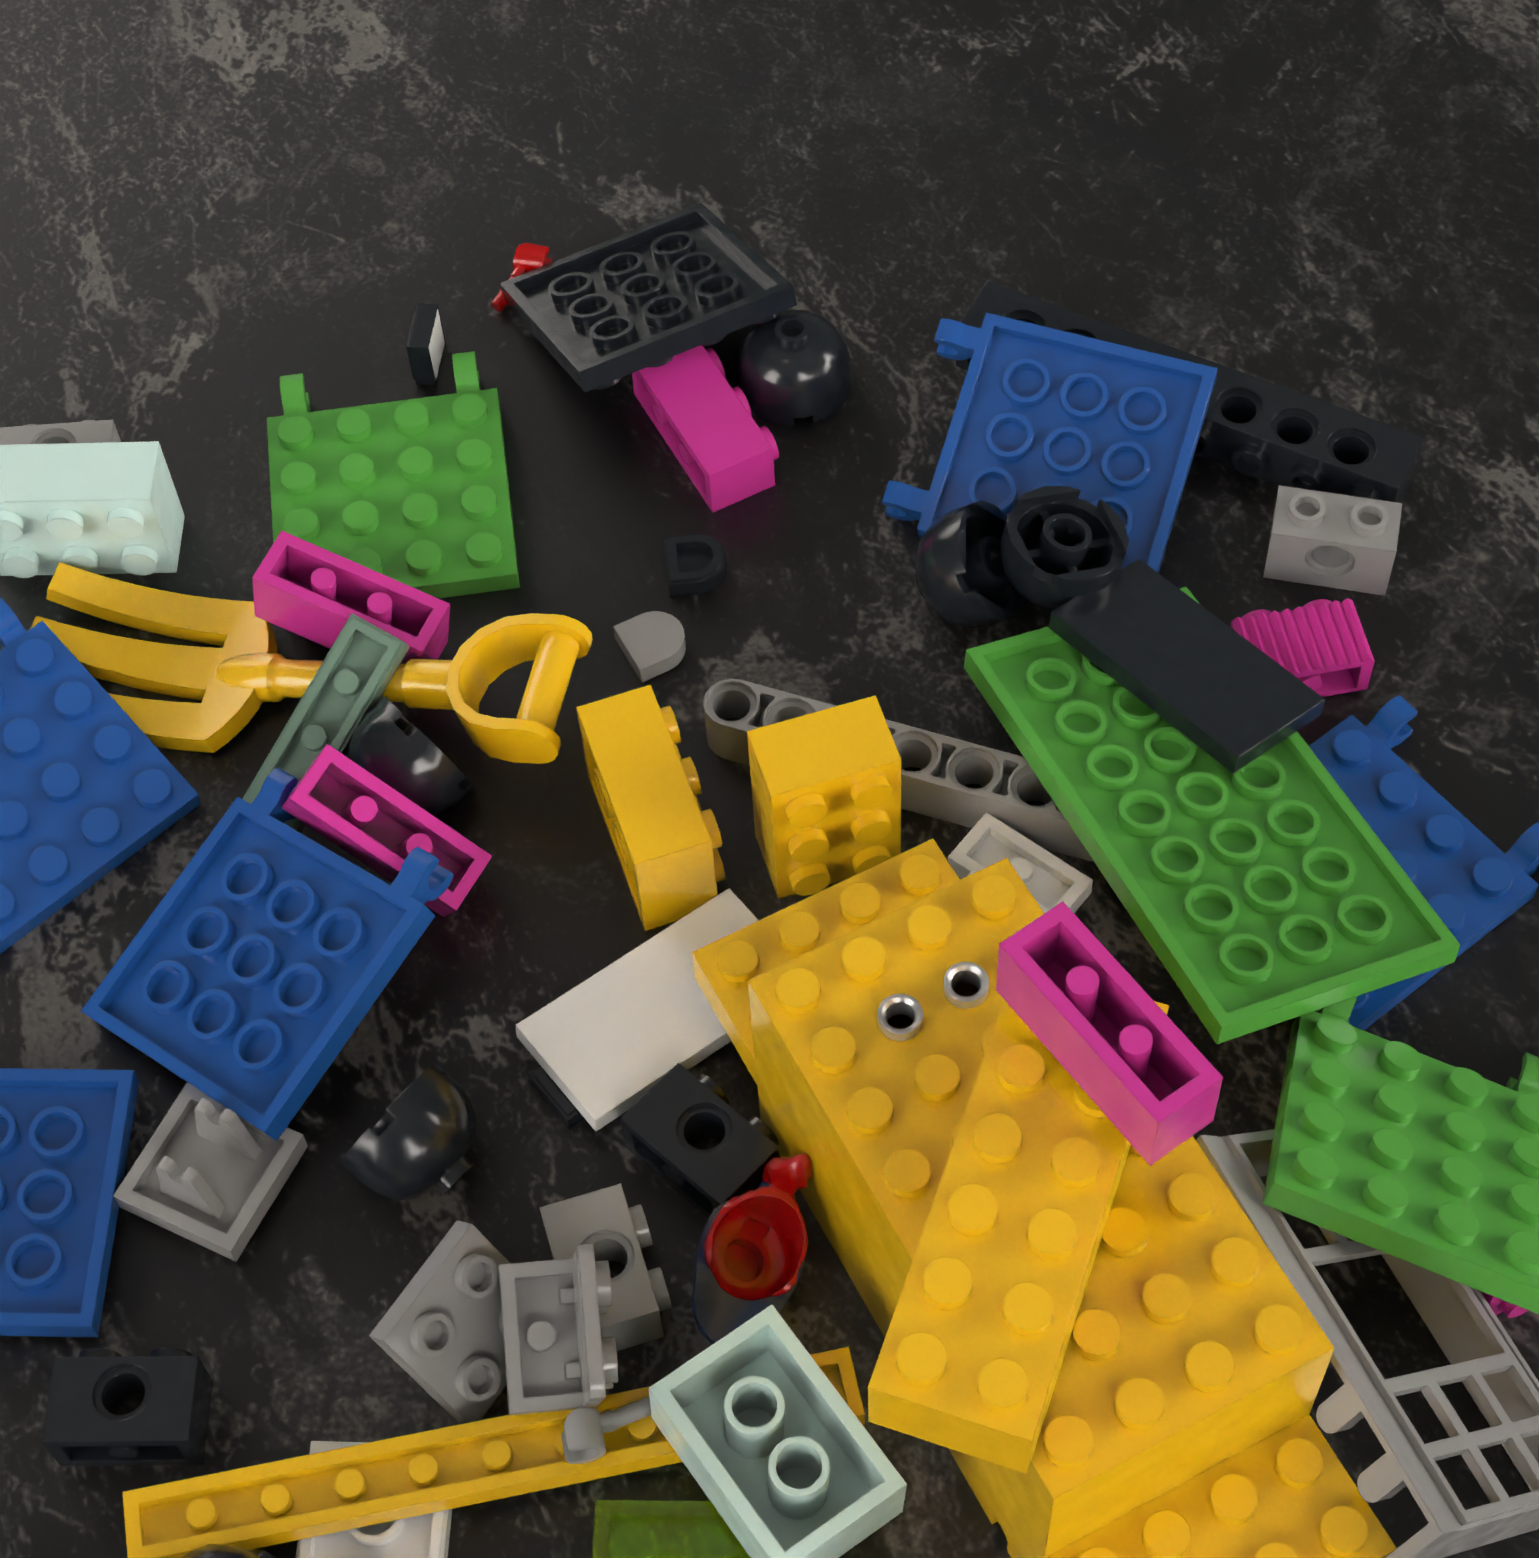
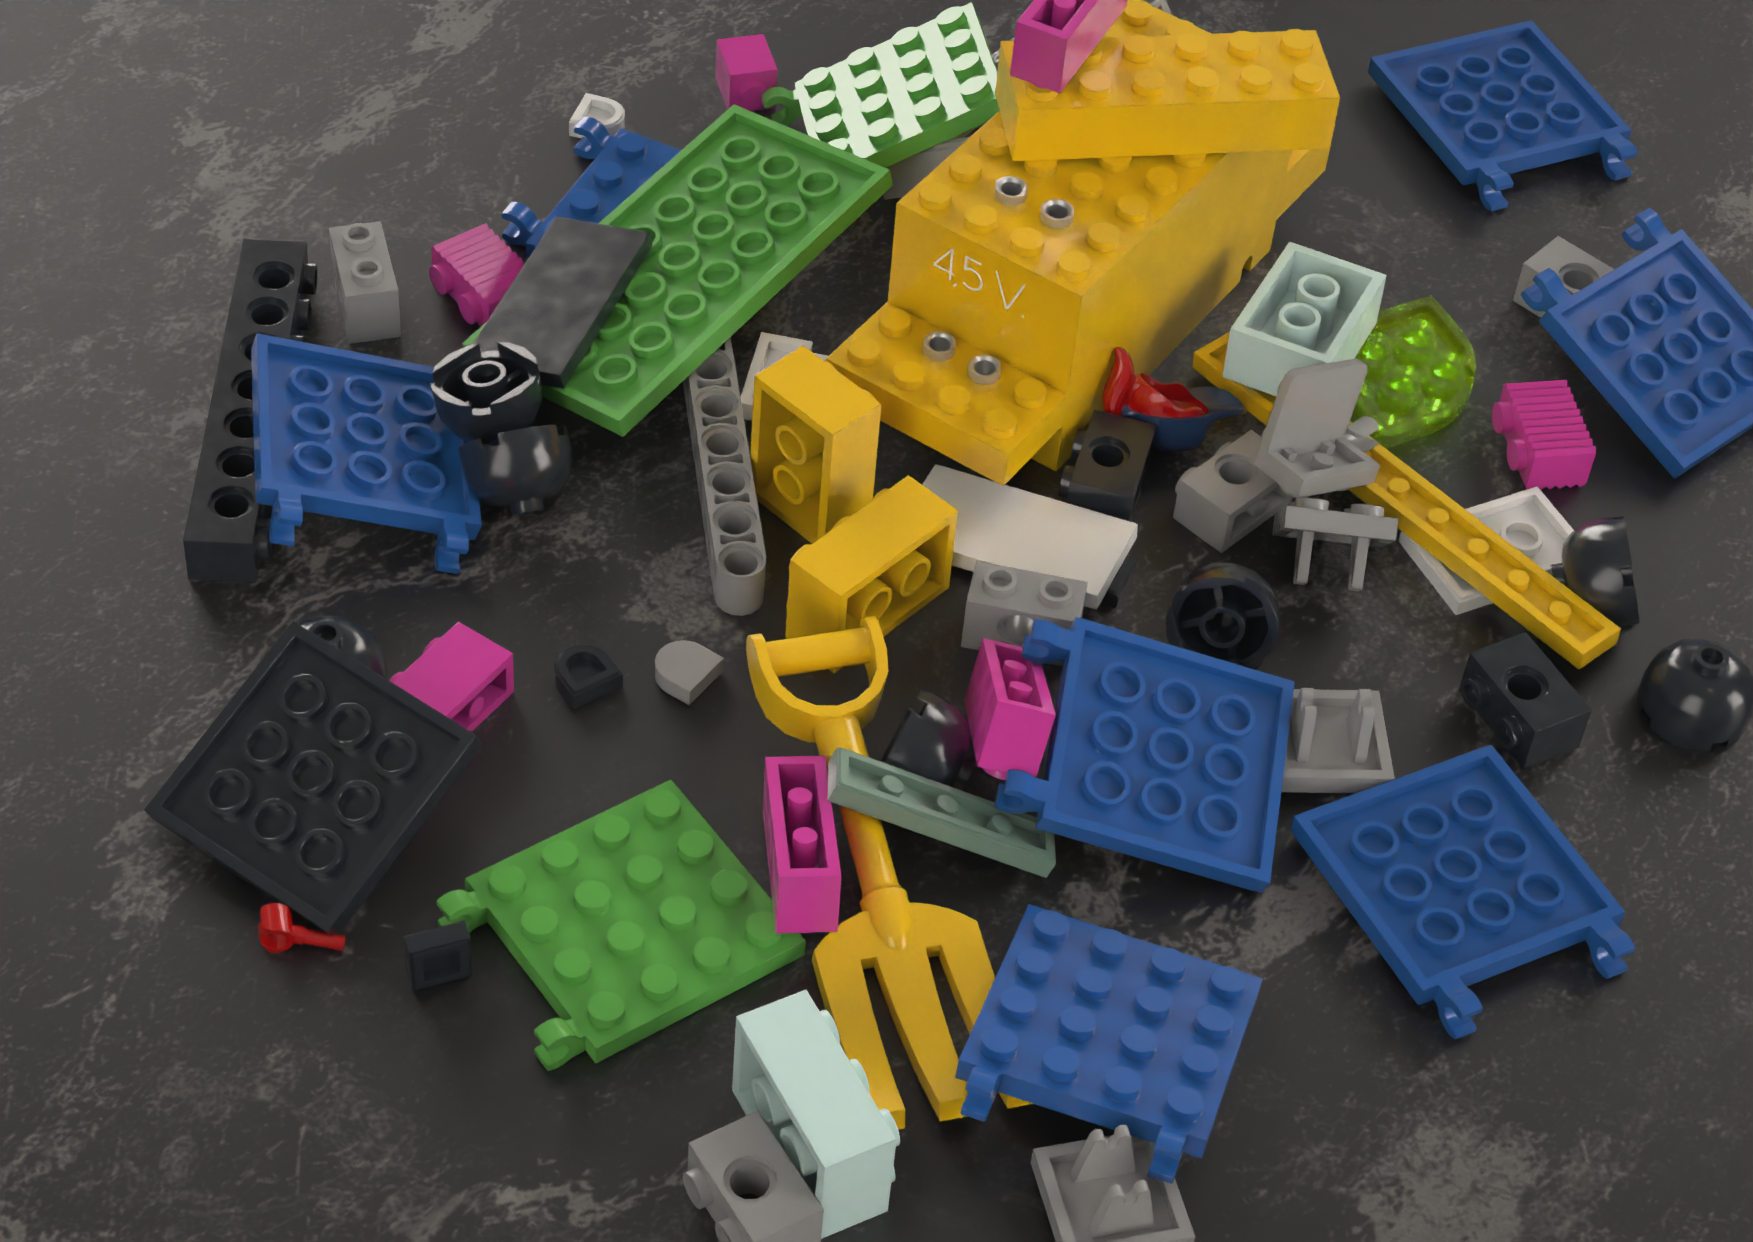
camera: 125 degrees left, 10 degrees down
(536, 947) = (1009, 599): none -> light grey brick

